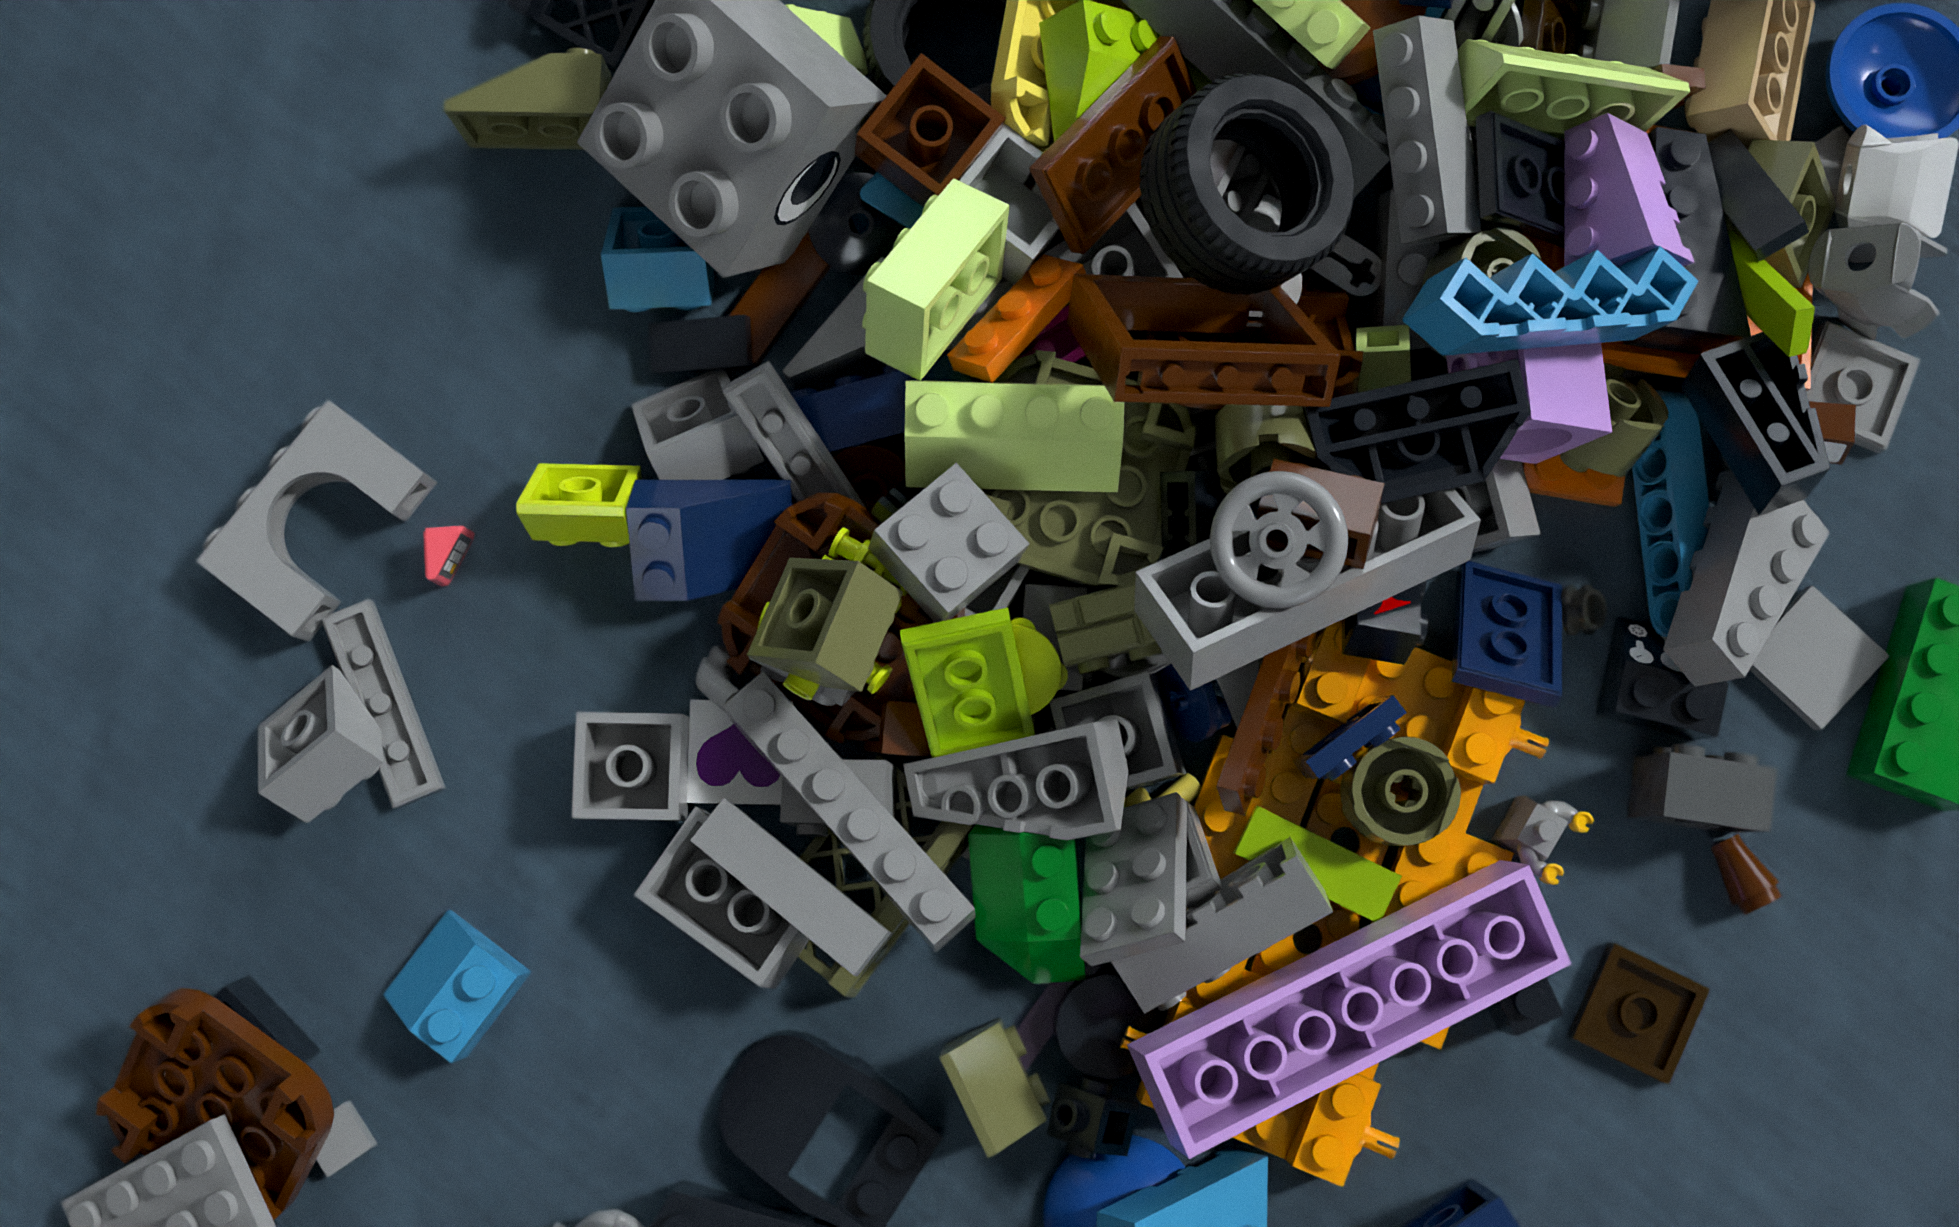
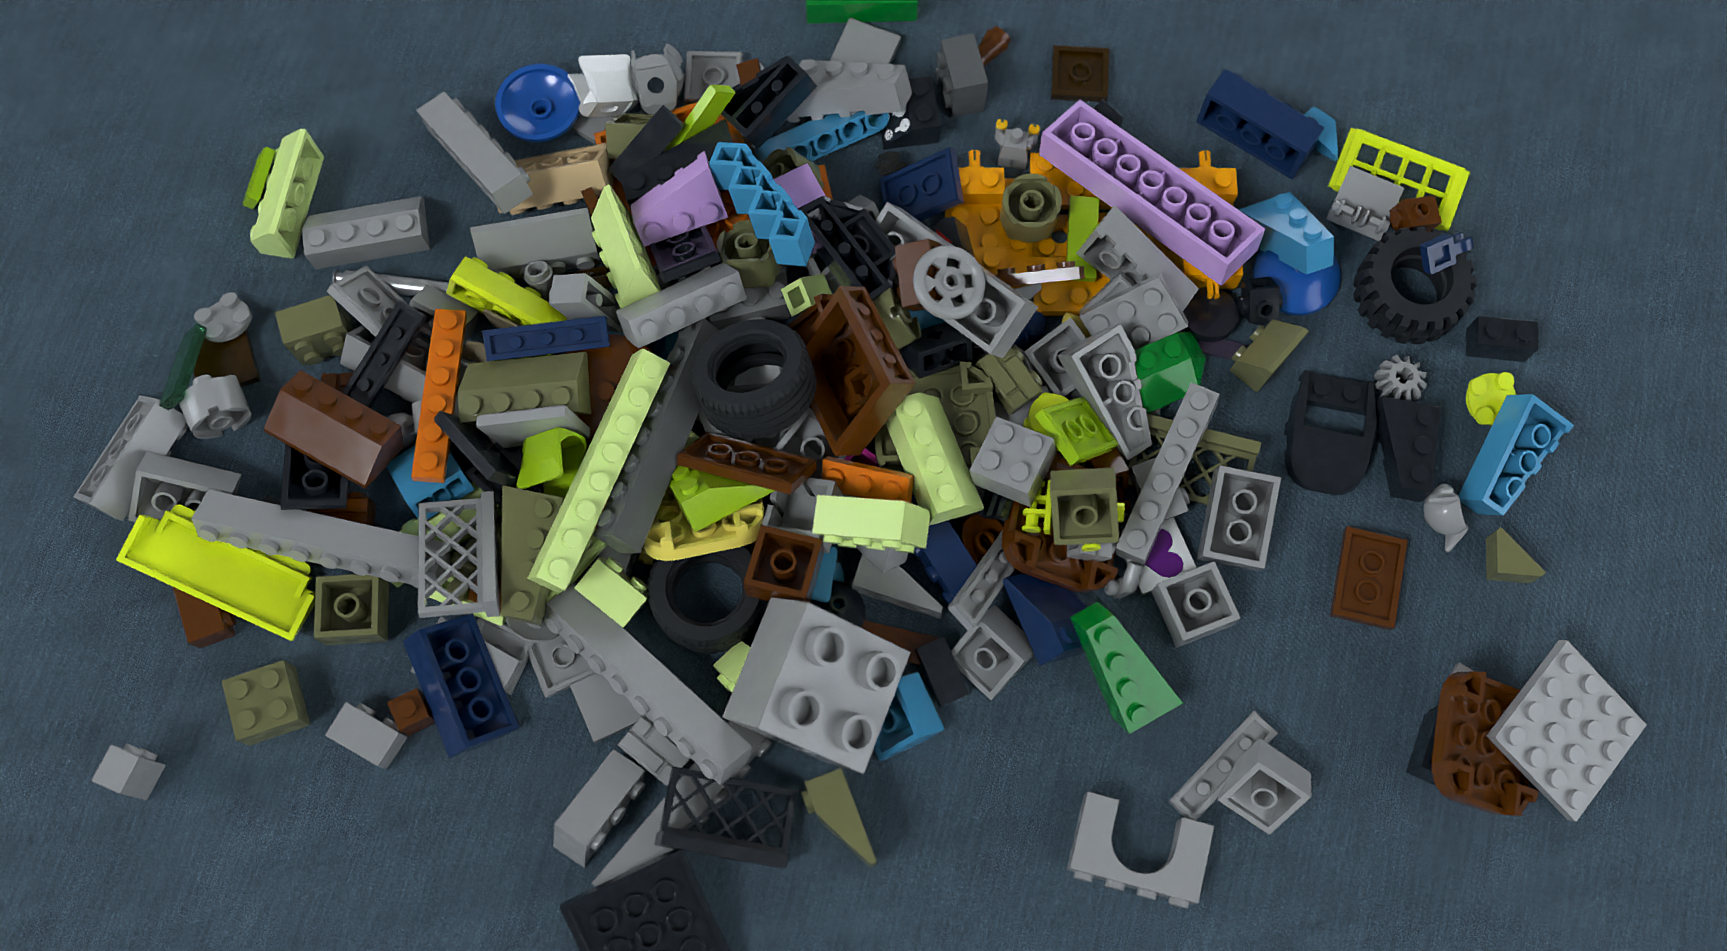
camera: 110 degrees left, 10 degrees down
(445, 551) = (1123, 765): coral slope -> none
(455, 987) = (1355, 654): dark azure slope -> none
(562, 1070) = (1368, 578): none -> reddish brown plate
(564, 597) = (1123, 672): none -> green wedge
(578, 503) = (1061, 692): neon yellow slope -> none
(790, 887) = (1223, 482): light grey tile -> none
(1365, 728) = (1021, 241): dark blue plate -> none

